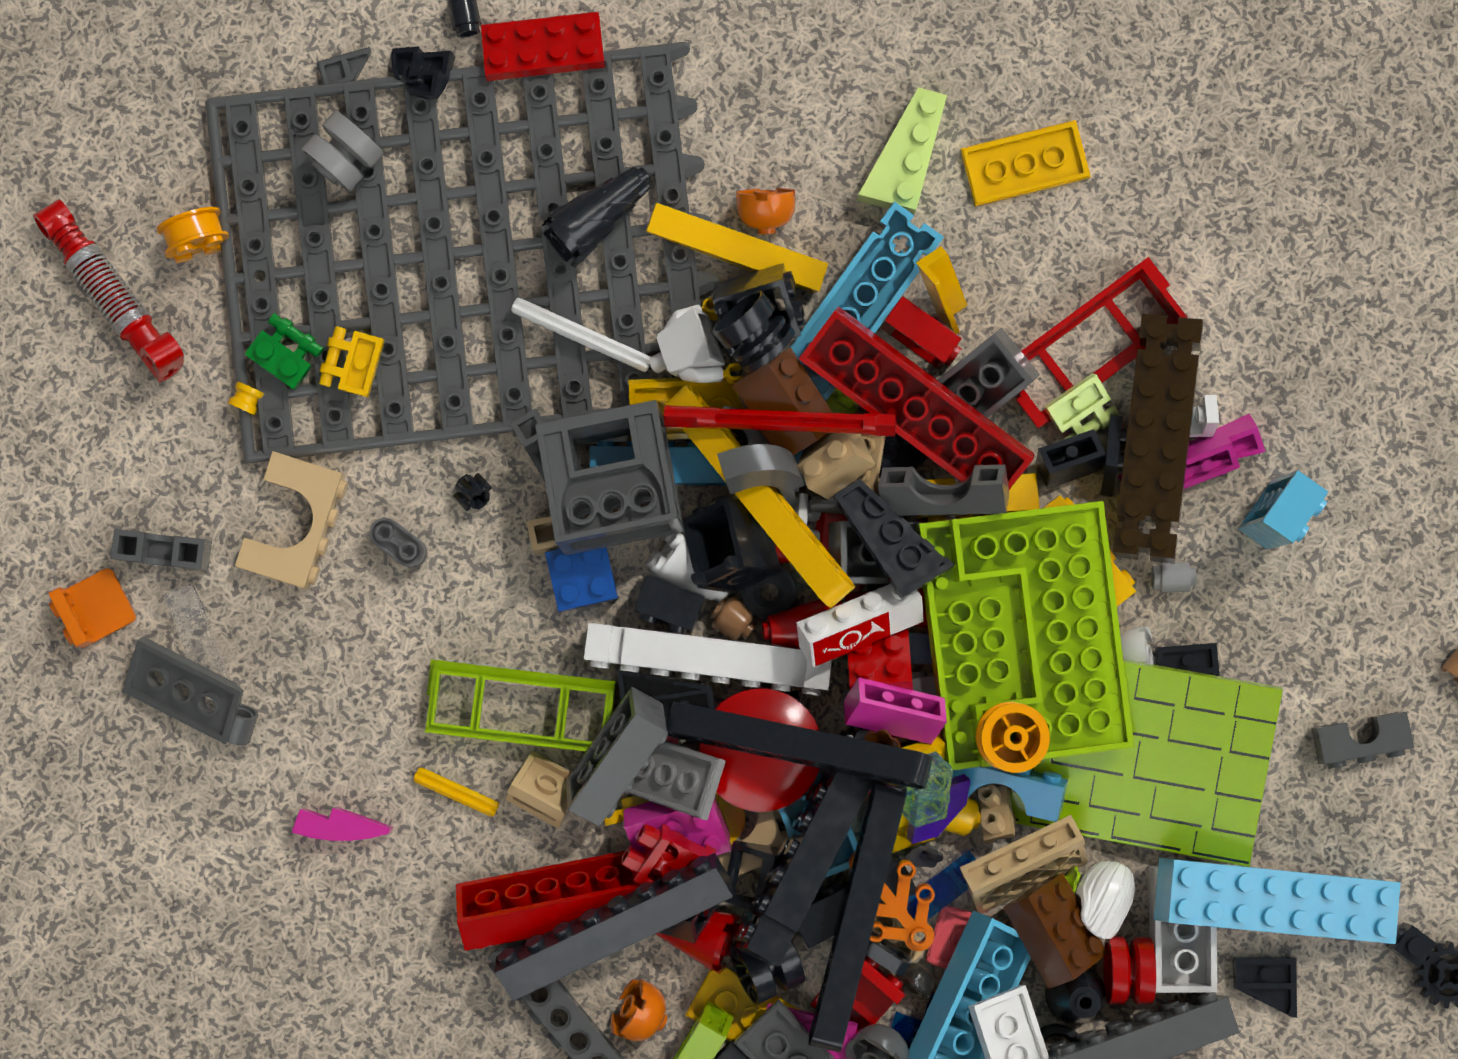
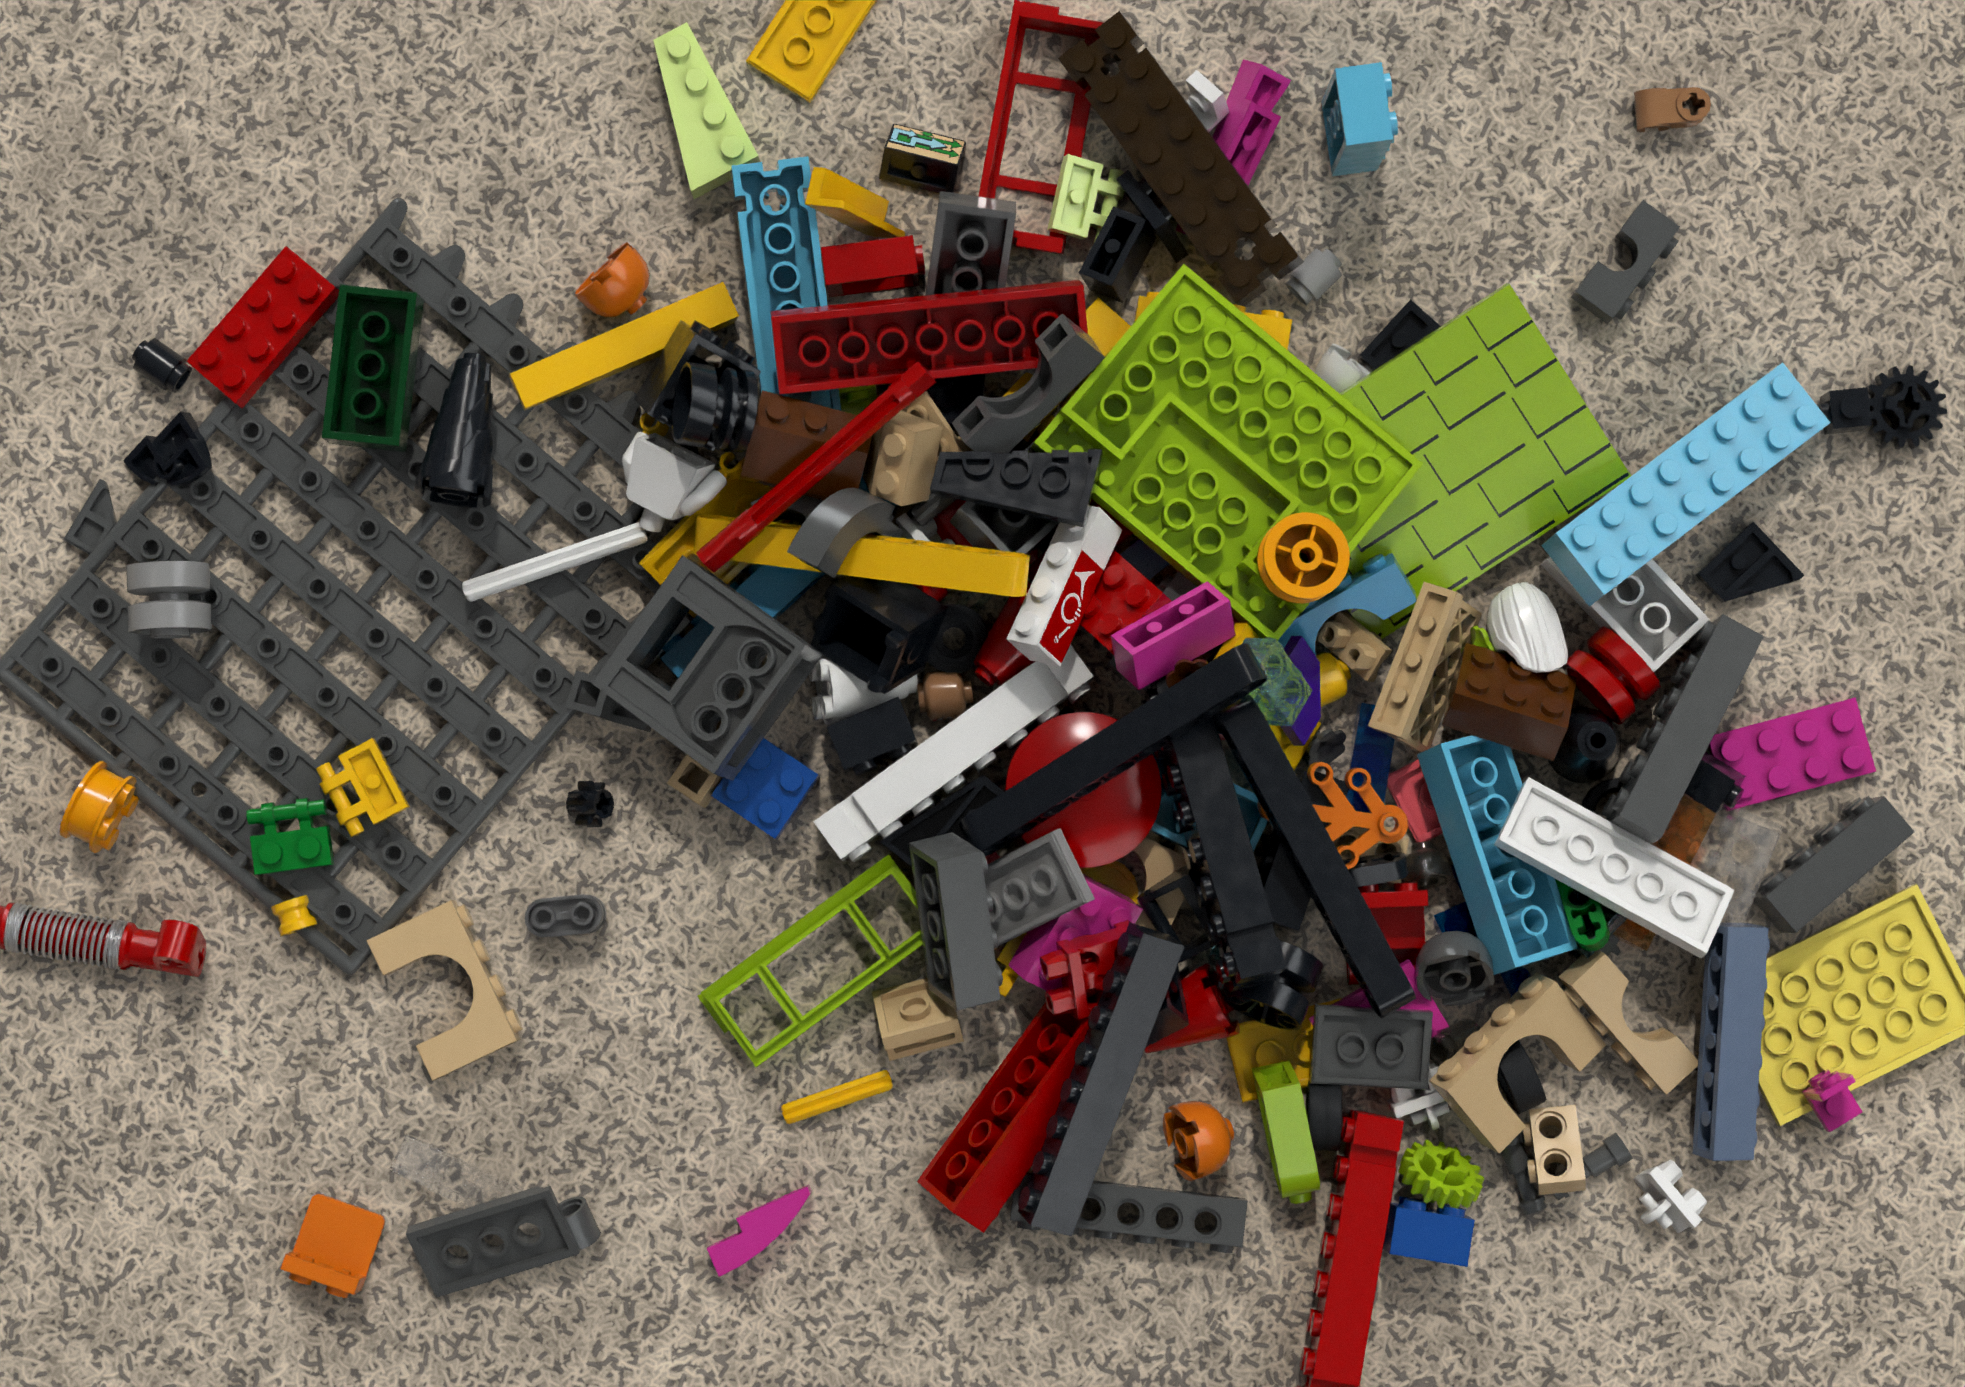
camera: 40 degrees left, 0 degrees up
(161, 549) = (348, 1130): dark grey arch -> none
(581, 127) = (372, 368): none -> dark green brick
(1008, 299) = (921, 159): none -> black panel

